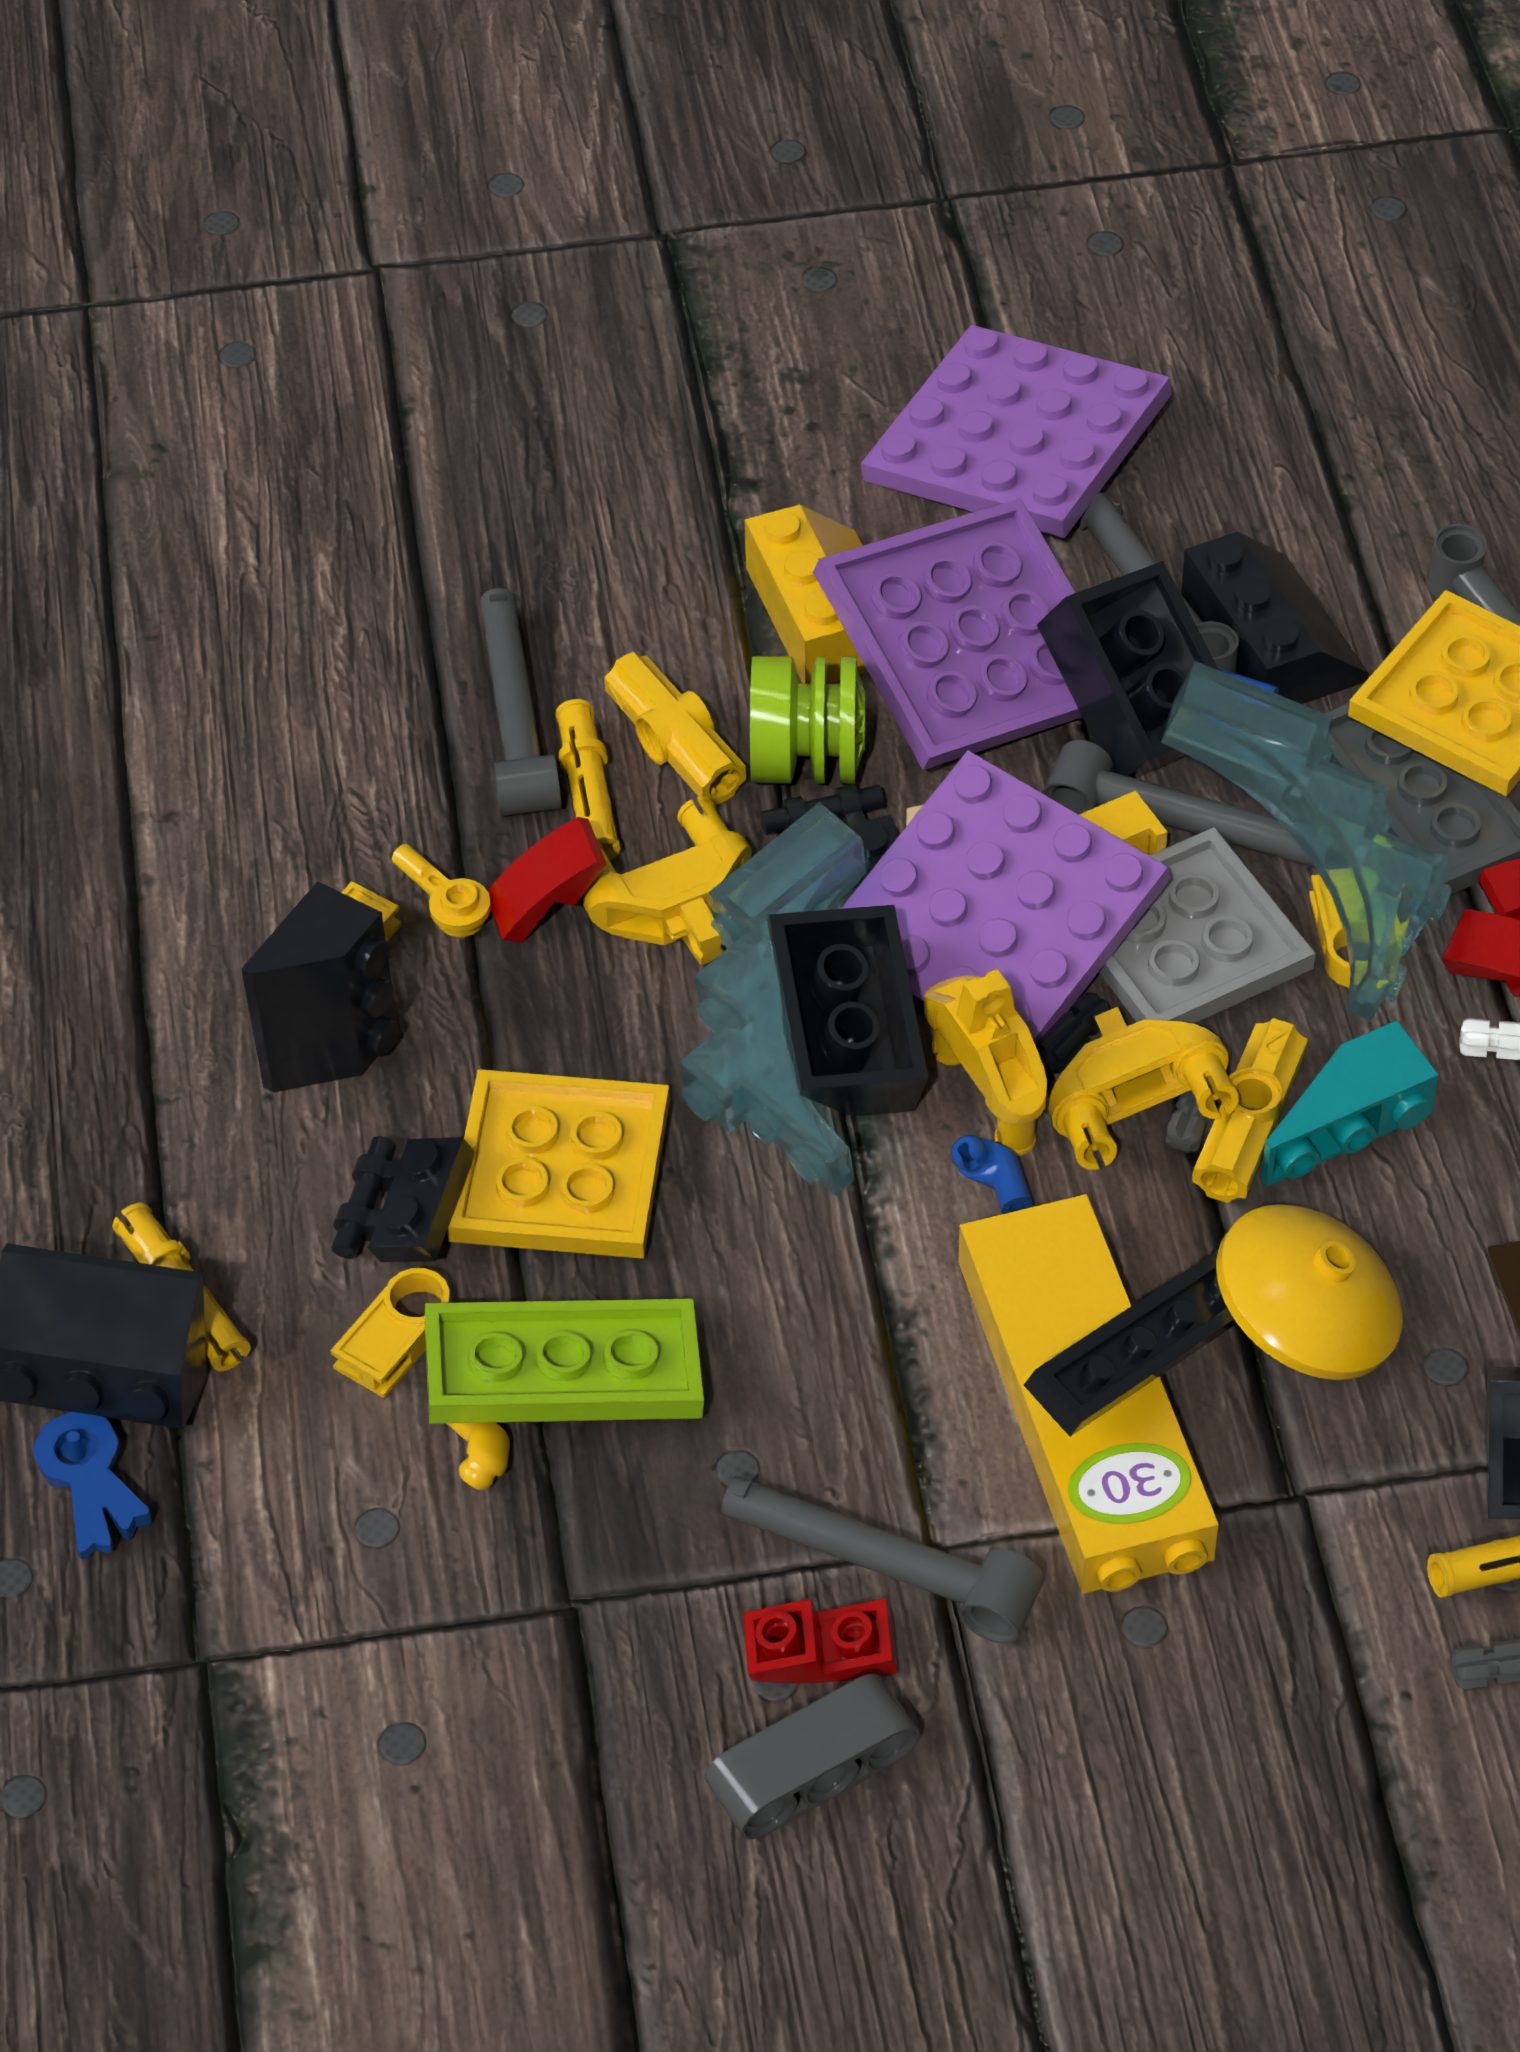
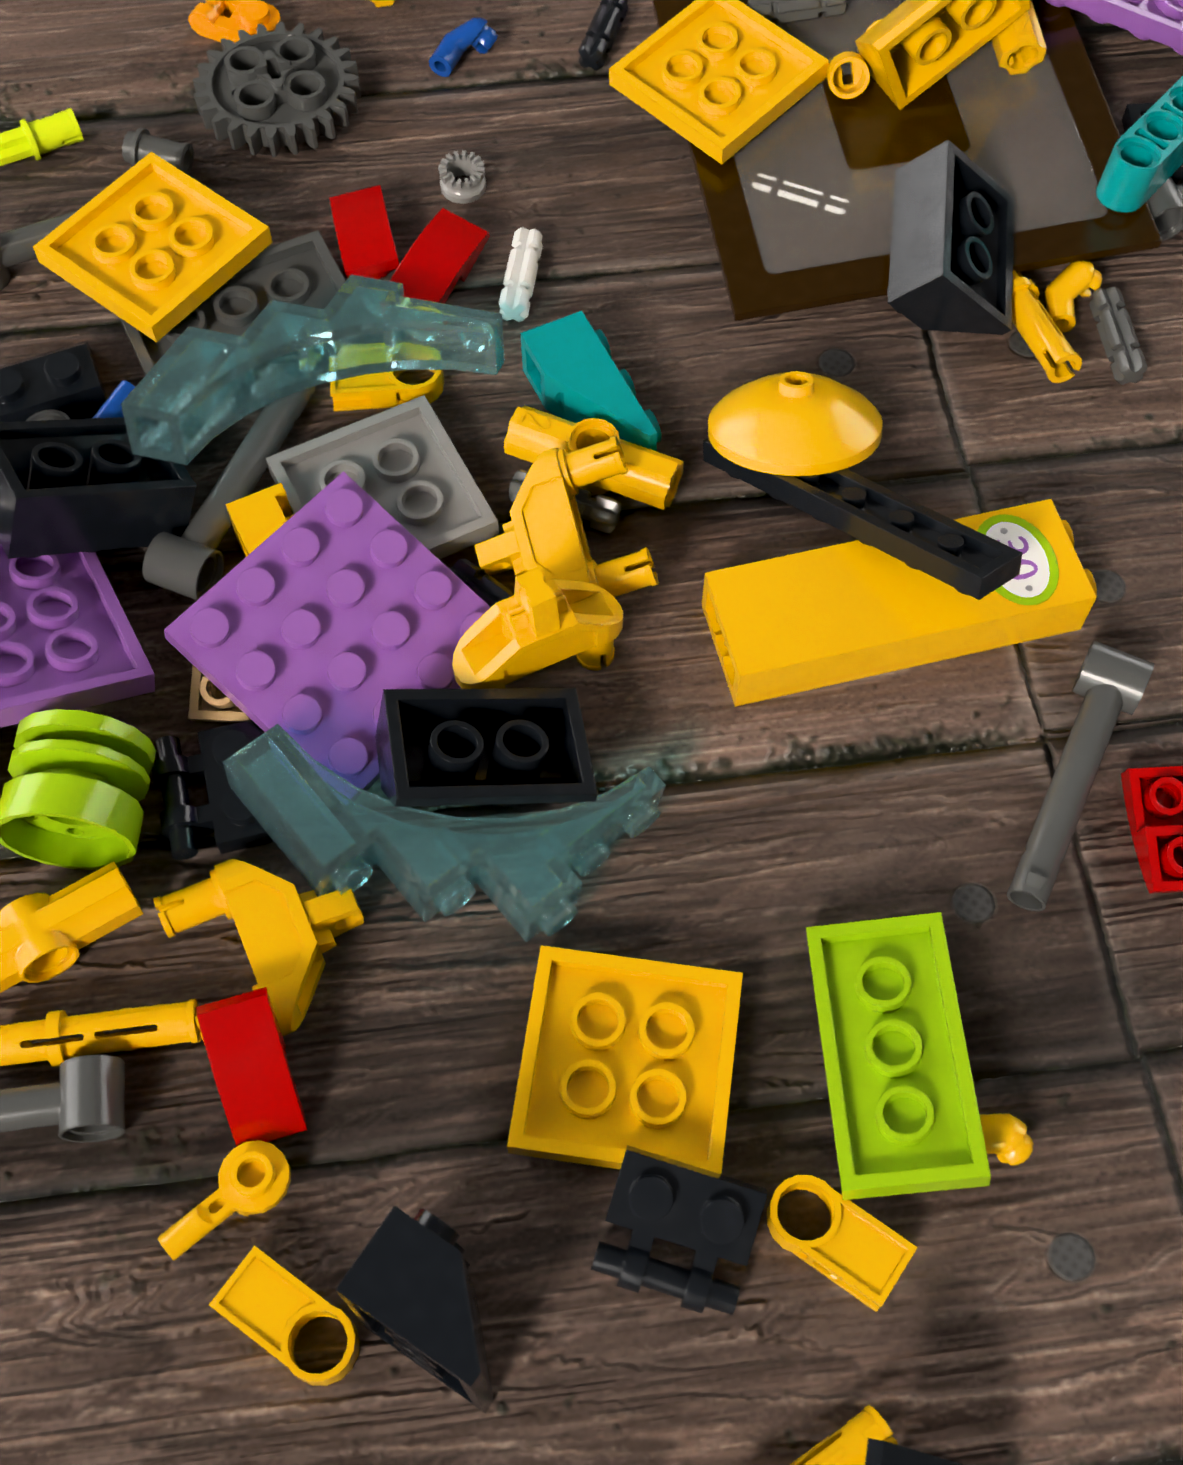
camera: 90 degrees left, 10 degrees up
(994, 1167) = (641, 661): blue arm -> none

